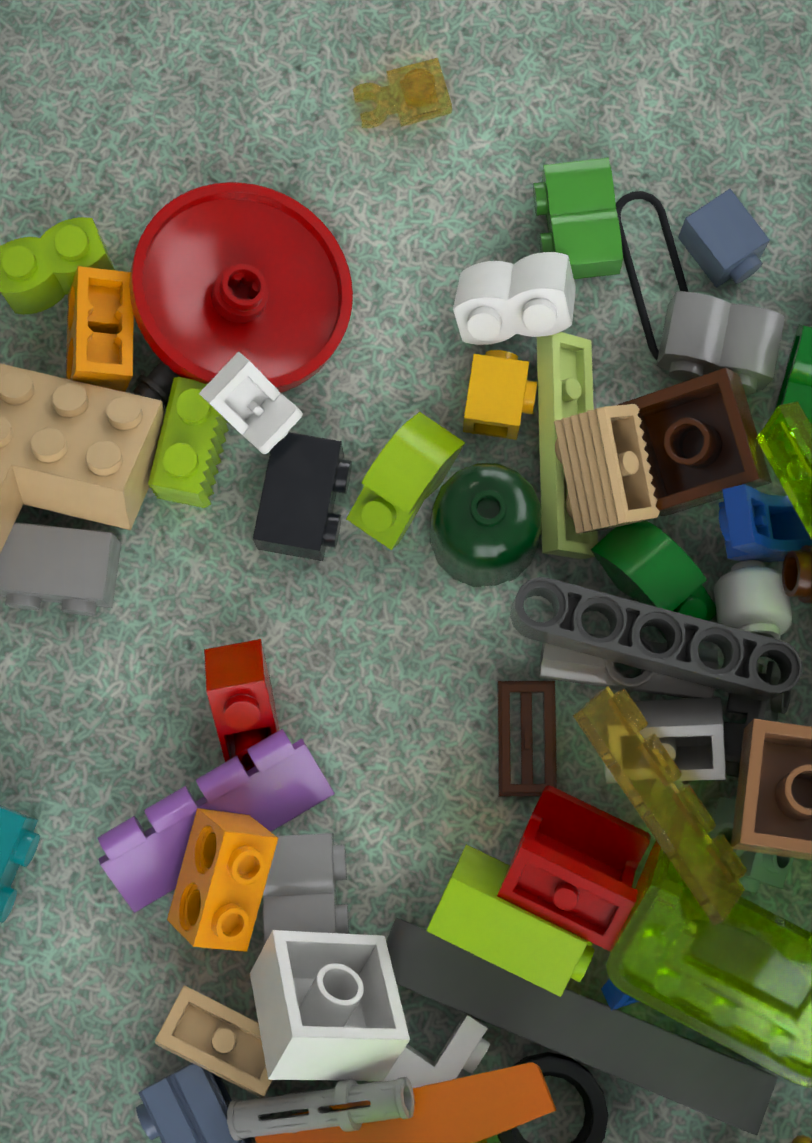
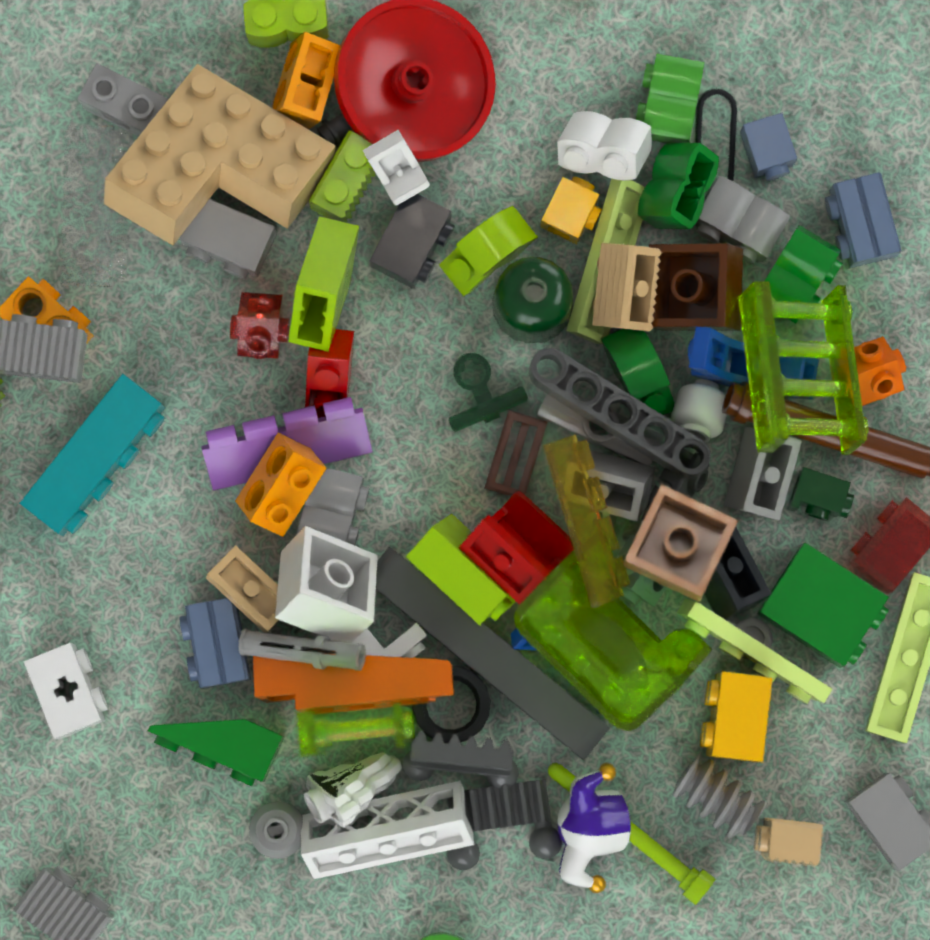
camera: 15 degrees right, 5 degrees up
(131, 670) = (260, 325): none -> clear red brick
(198, 588) = (323, 284): none -> lime brick
(469, 685) = (487, 407): none -> clear green piece
(627, 321) = (678, 186): none -> green brick

